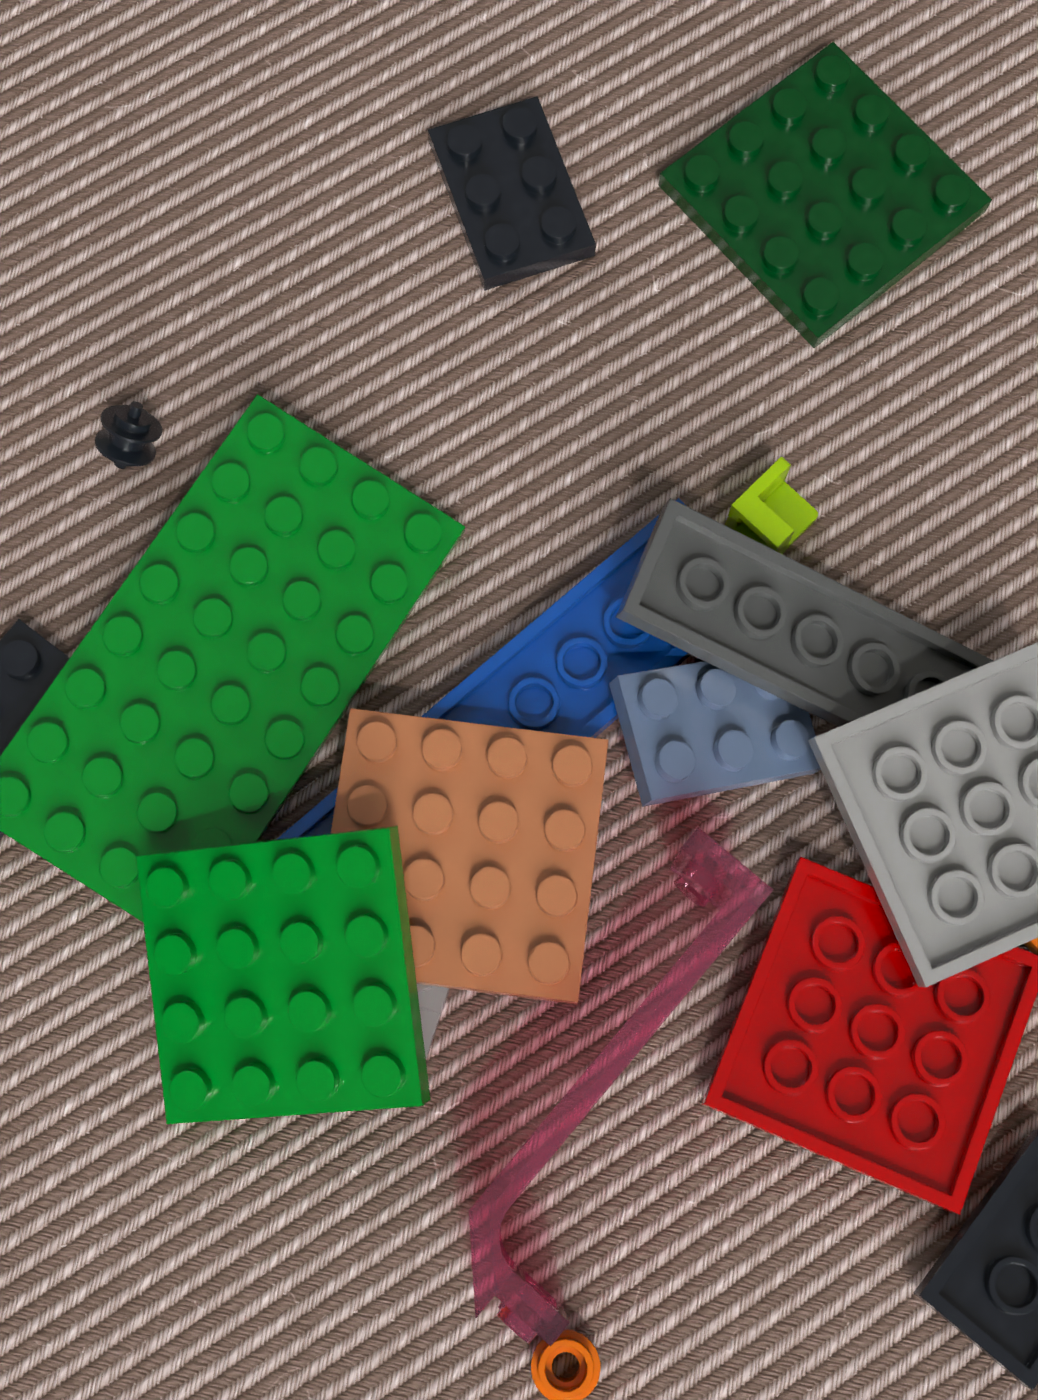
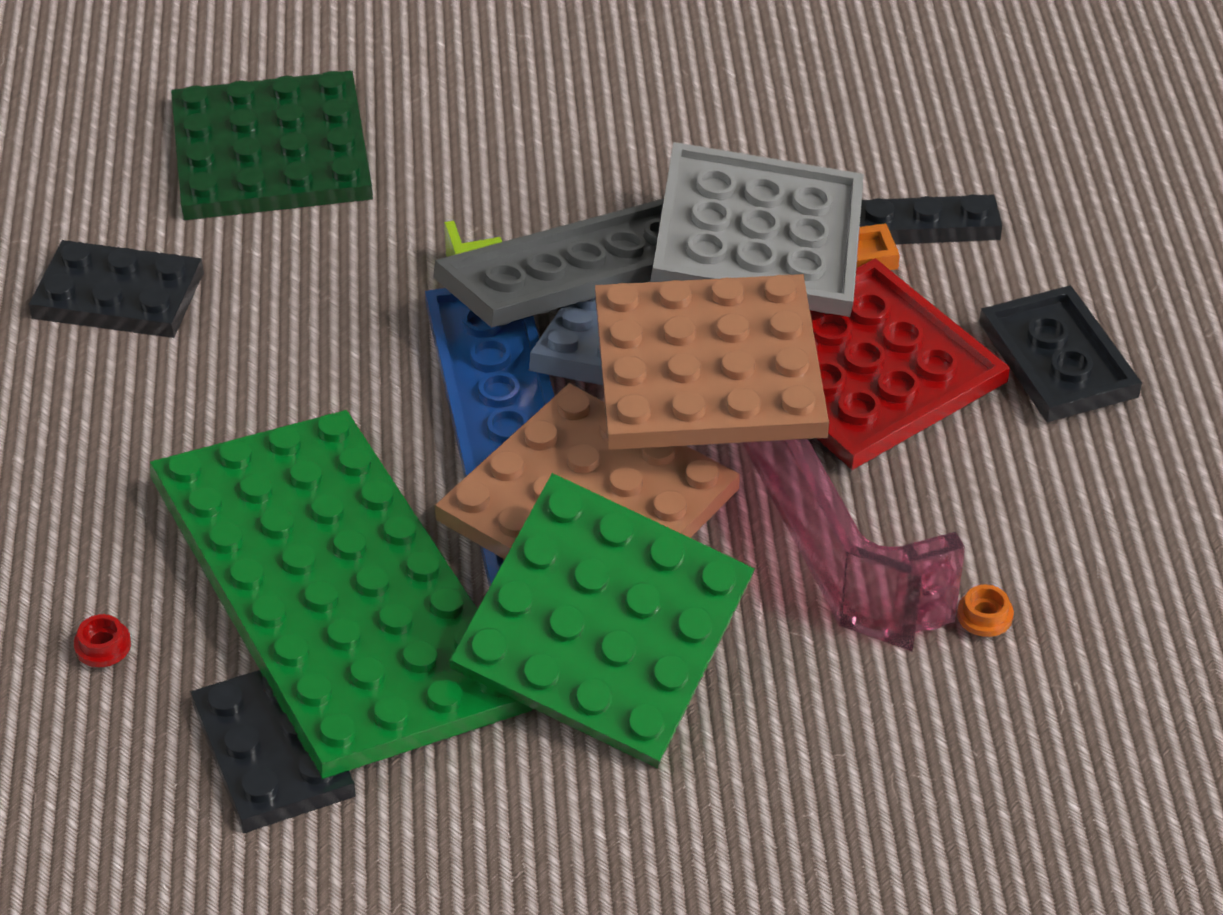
camera: 60 degrees left, 30 degrees down
(30, 485) = (102, 641): none -> red plate
(128, 435) = (105, 560): black wheel -> none
(671, 899) = (709, 362): none -> nougat plate

